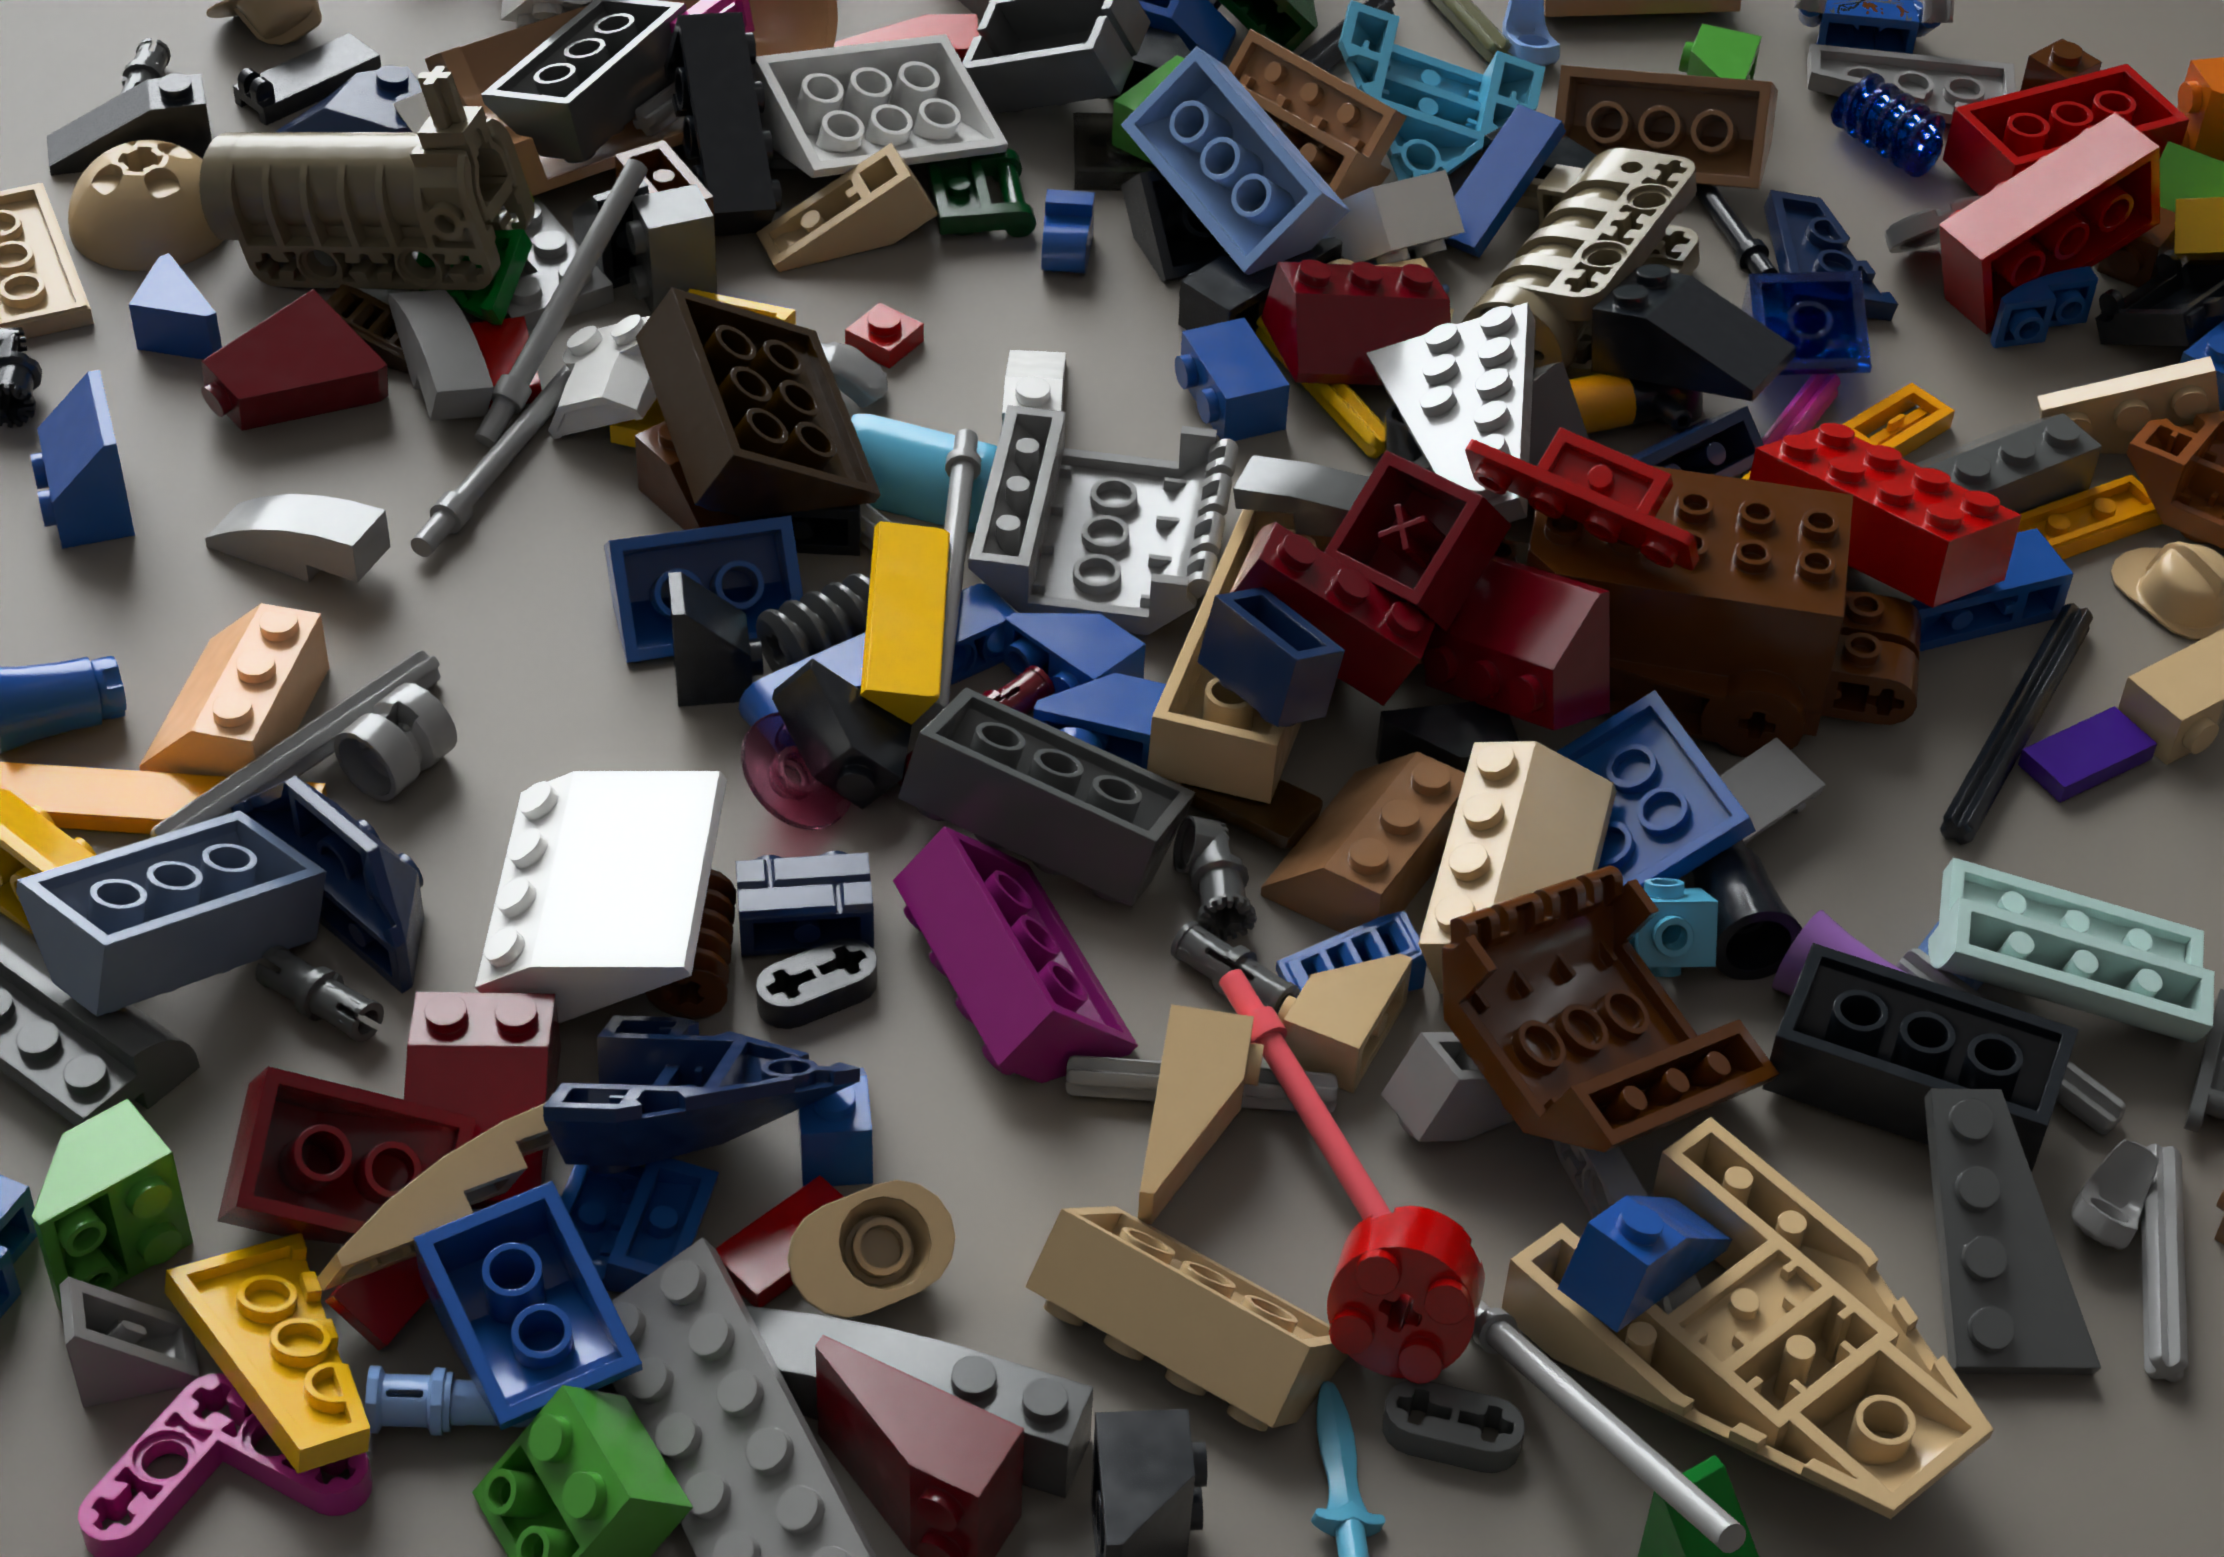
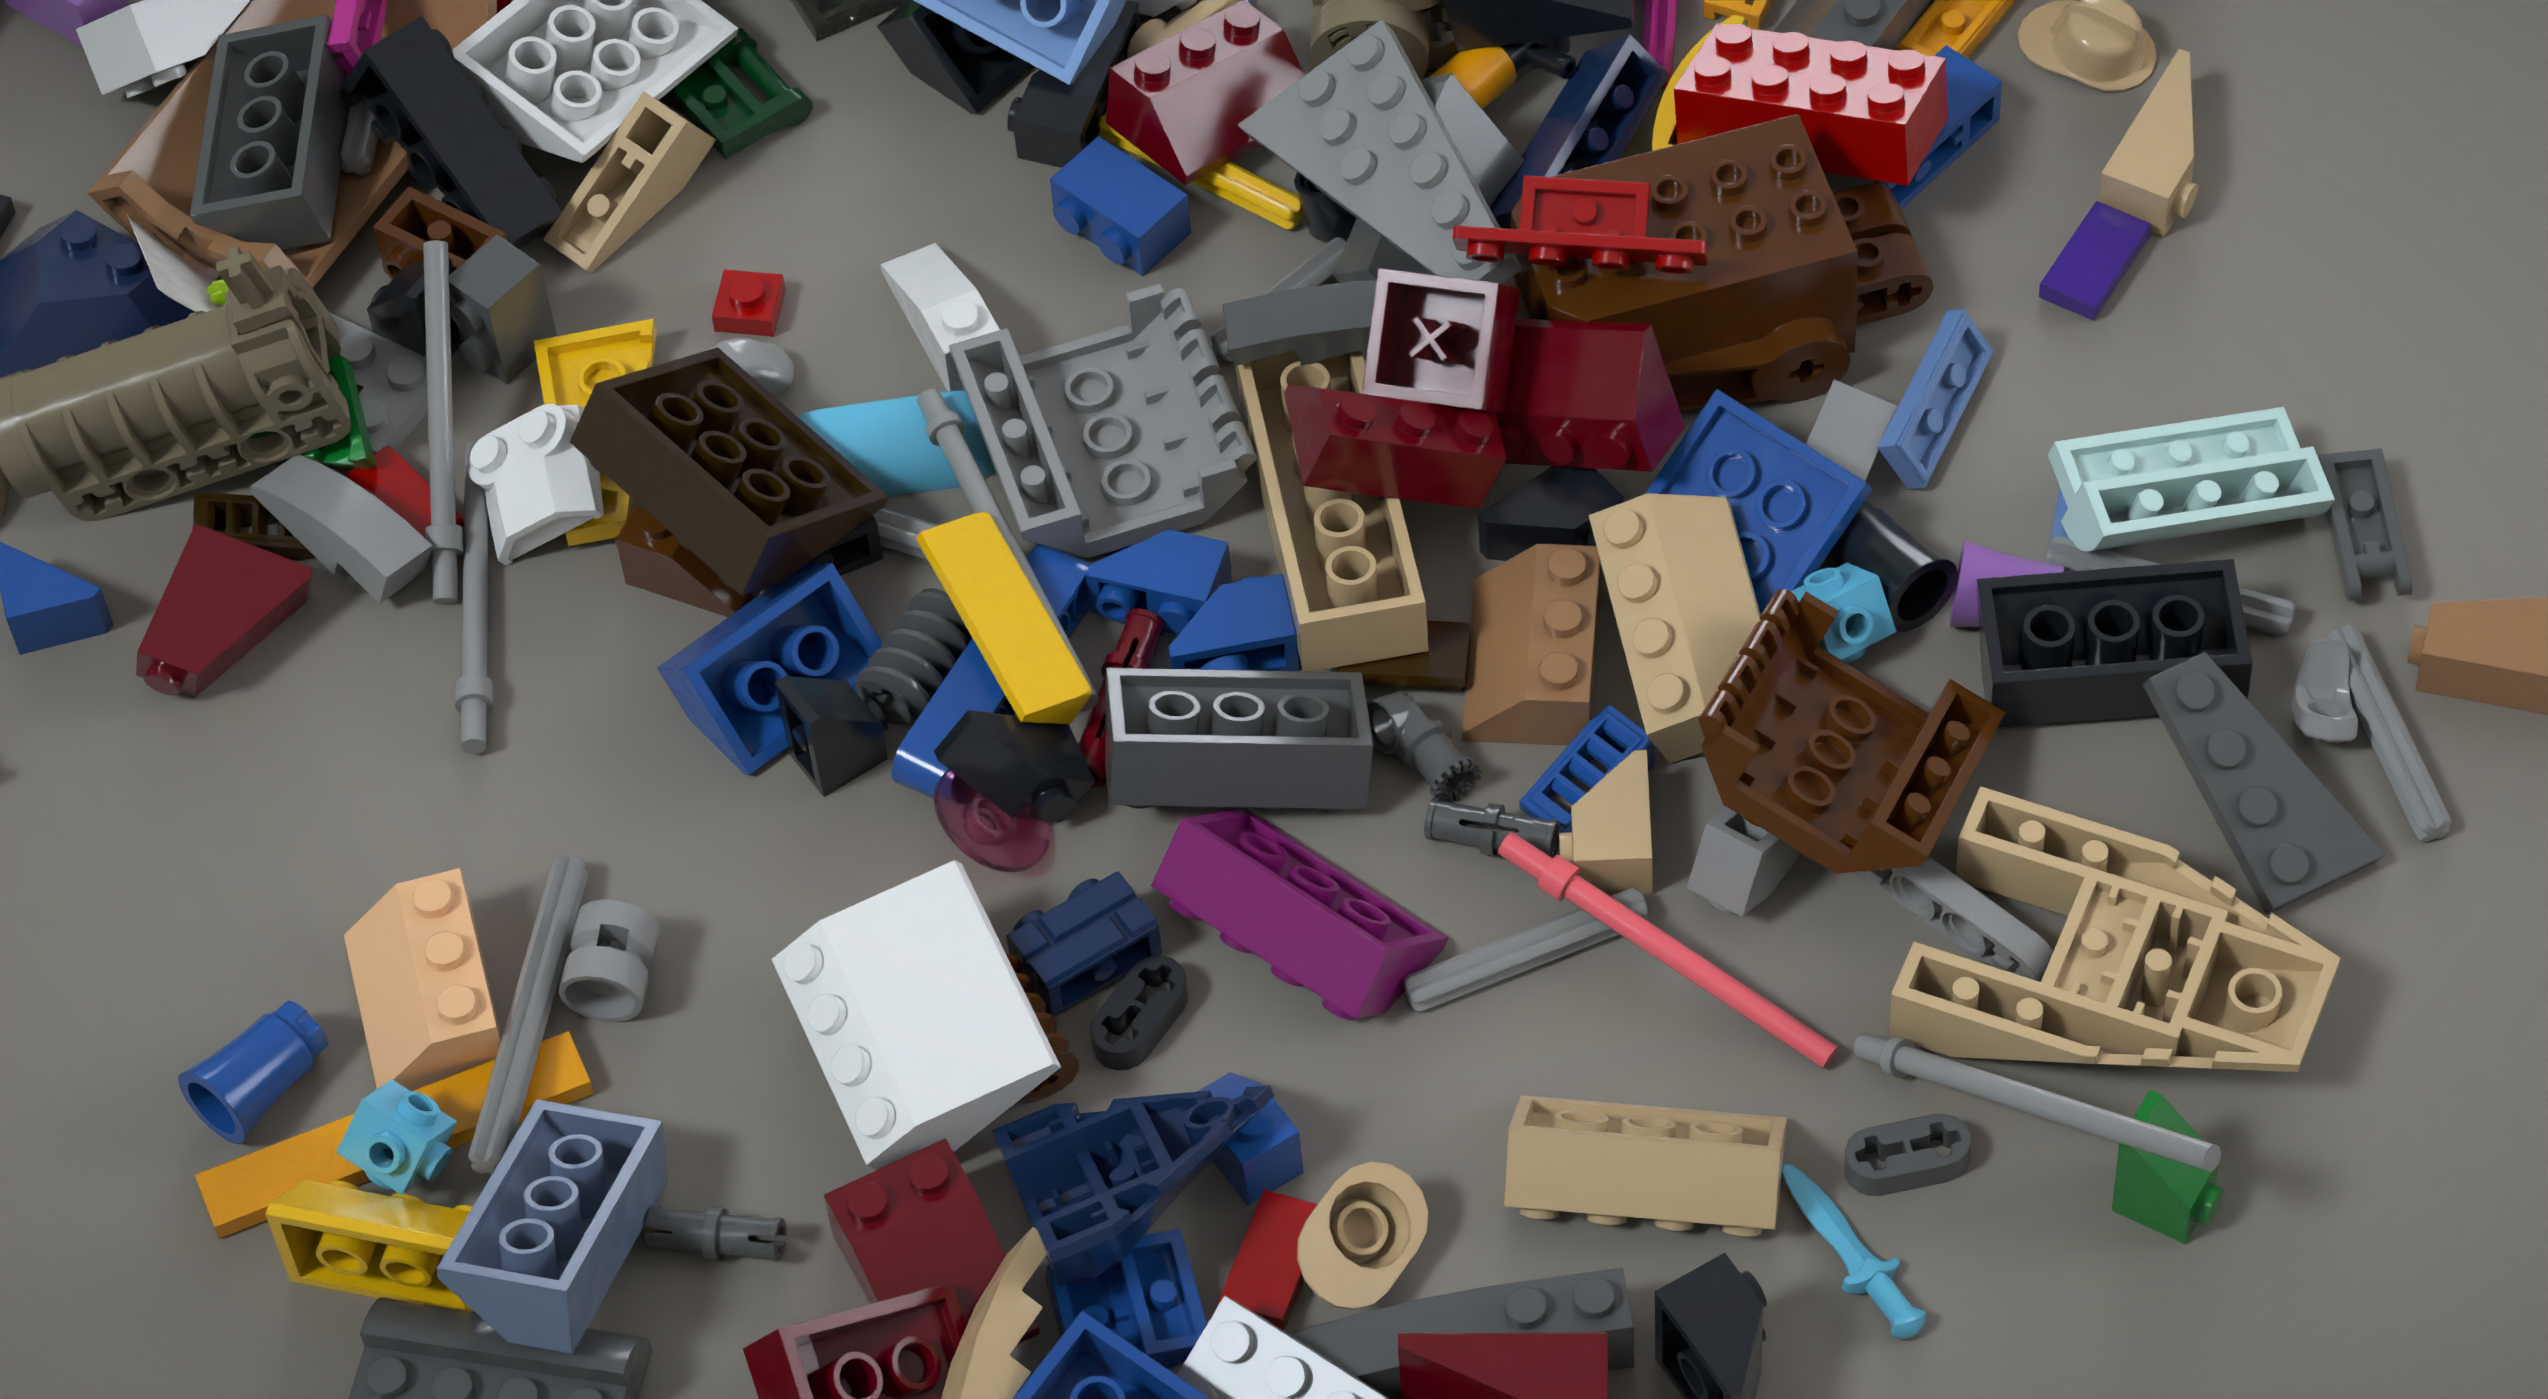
camera: 20 degrees left, 10 degrees up
(82, 469) = (100, 815): blue slope -> none
(106, 789) = (398, 1138): none -> medium azure brick
(304, 535) = (354, 787): light grey slope -> none
(368, 890) = (702, 1112): dark blue wedge -> none
(1067, 230) = (854, 103): blue leg -> none
(1196, 1097) = (1537, 950): tan slope -> none
(1270, 656) = (1381, 522): dark blue brick -> none
(1405, 1294) = (1821, 1063): red brick -> none
(1638, 1256) = (1998, 945): blue slope -> none
(1867, 798) = (1935, 399): none -> medium blue tile
(2016, 724) = (2020, 255): black axle -> none

